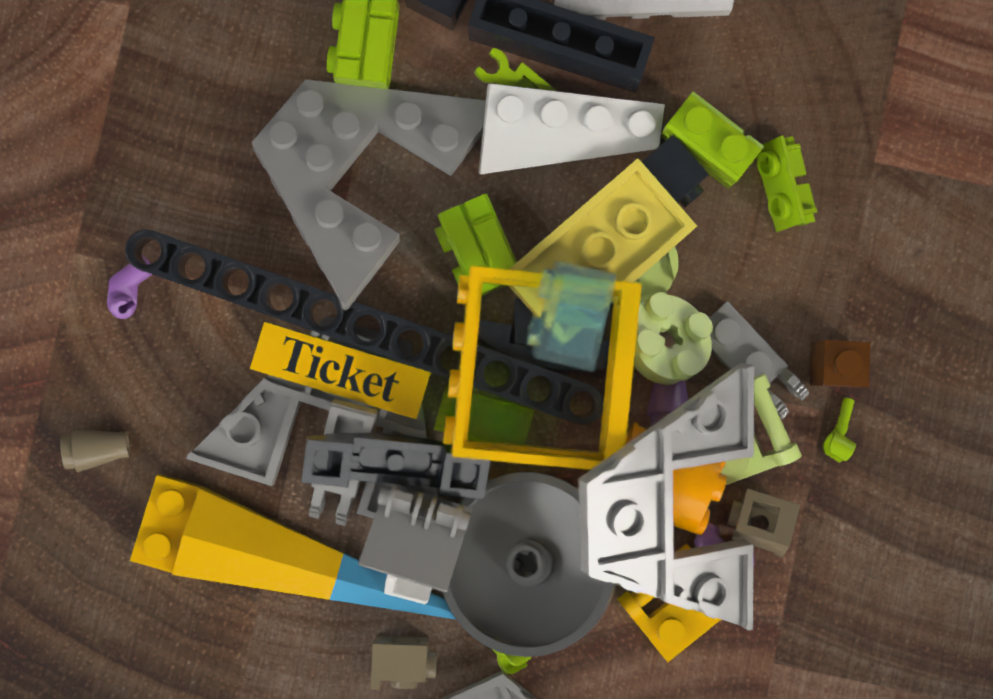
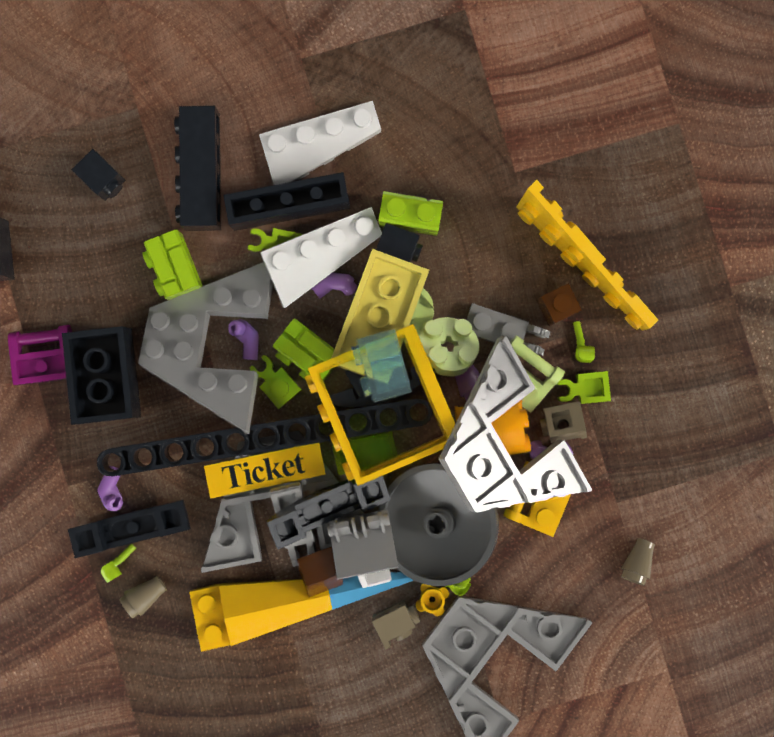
camera: 20 degrees left, 0 degrees up
(70, 391) = (110, 570): none -> lime hand
(123, 350) = (129, 528): none -> black slope
(127, 78) = (40, 365): none -> magenta plate
(195, 131) = (101, 375): none -> black brick
(338, 541) = (319, 572): none -> reddish brown brick
(412, 186) = (247, 335): none -> medium lavender arm
(417, 271) = (278, 385): none -> lime plate
(465, 670) = (435, 607): none -> yellow plate
(566, 177) = (335, 281): none -> medium lavender arm
(787, 202) = (459, 205): lime hinge -> none
(819, 493) = (589, 388): none -> lime plate
(908, 311) = (580, 251): none -> yellow wing

